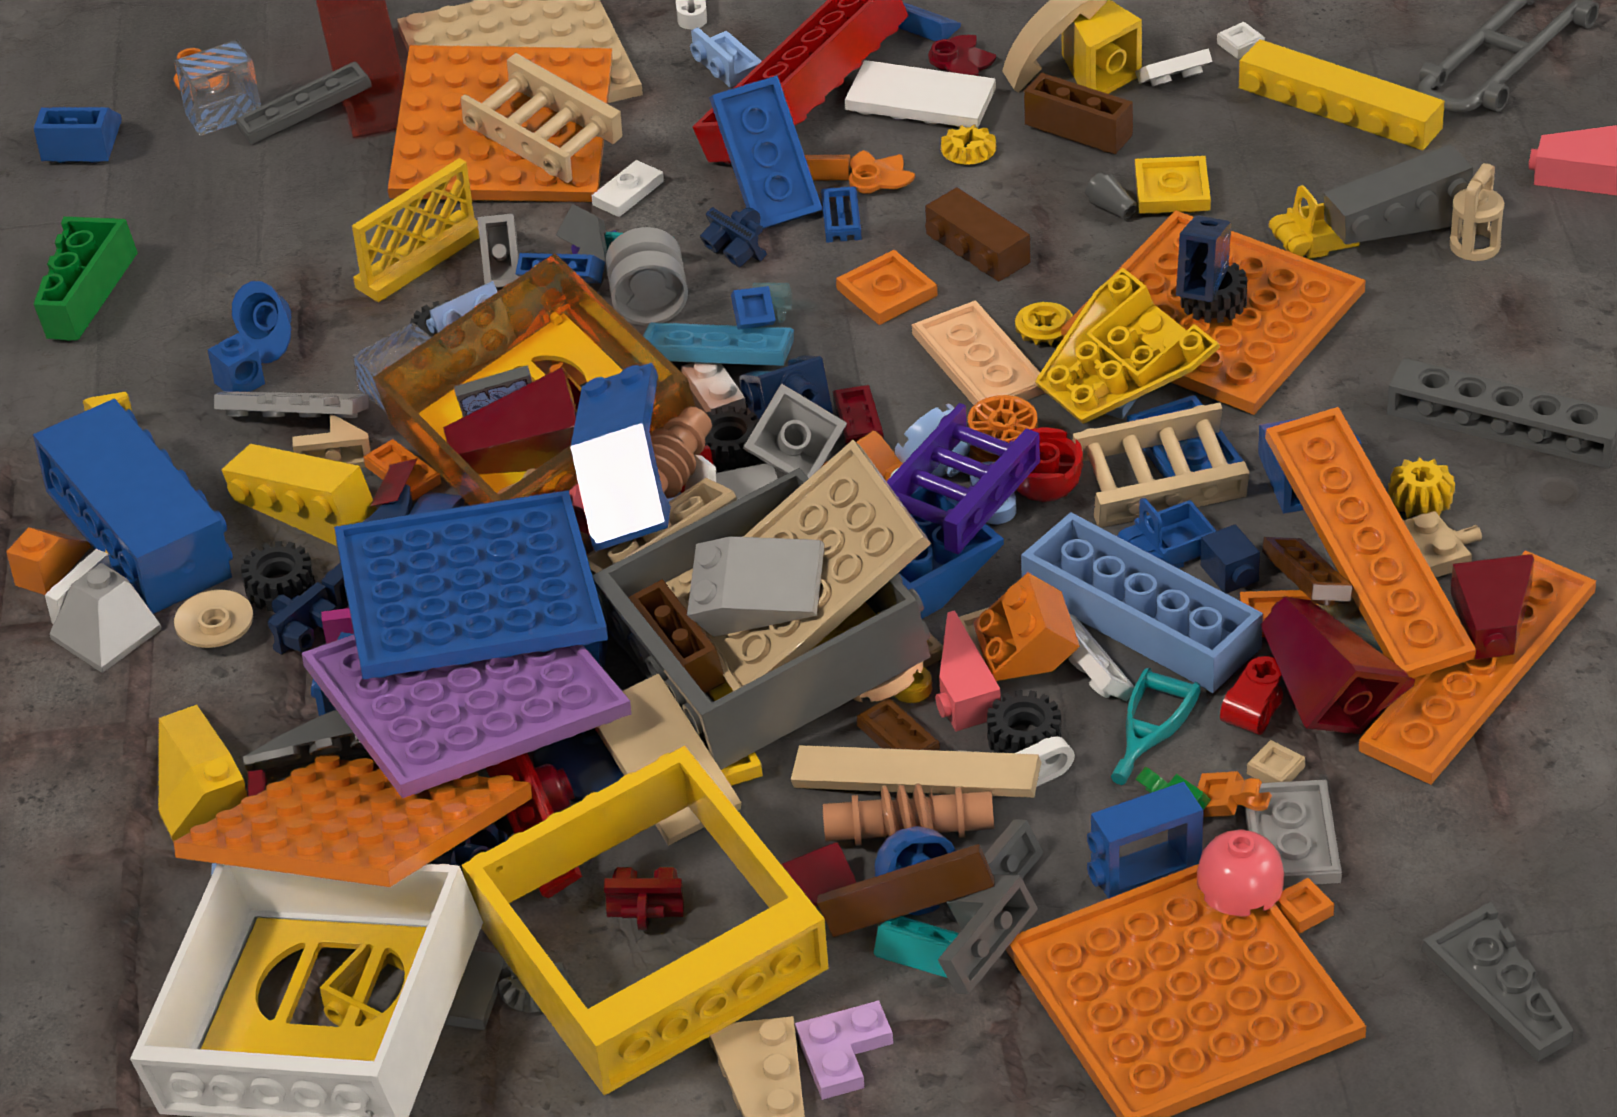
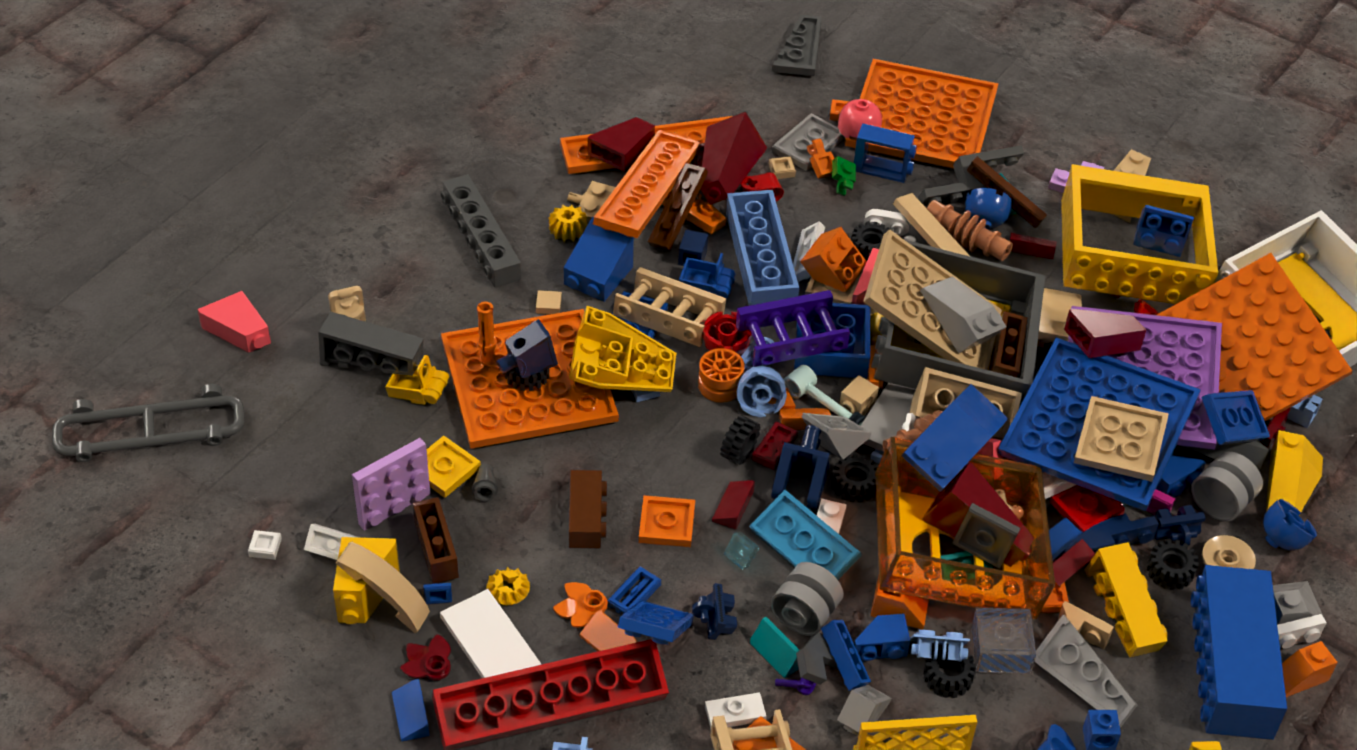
camera: 145 degrees left, 5 degrees up
(155, 679) = (1286, 527): none -> blue cylinder
(265, 673) = (1227, 486): none -> light grey wheel
(301, 711) = (1235, 417): none -> blue tile
(417, 551) = (1121, 438): none -> tan plate
(542, 650) = (1104, 332): none -> dark red slope
(579, 829) = (1162, 230): none -> blue slope
(753, 307) = (767, 539): blue tile -> none
(835, 341) = (734, 503): none -> dark red slope
(892, 374) = (740, 439): none -> black tyre
(977, 354) = (670, 442): light nougat tile -> none
(1015, 94) = (437, 593): none -> blue slope
(1044, 314) = (625, 428): yellow gear -> none
(1149, 733) = (821, 210): teal piece -> none
(1171, 93) = (391, 484): none -> lavender plate
(1277, 256) = (487, 341): none -> orange pin
(1311, 399) = (548, 302): none -> tan tile
(1341, 94) = (282, 455): yellow brick -> none

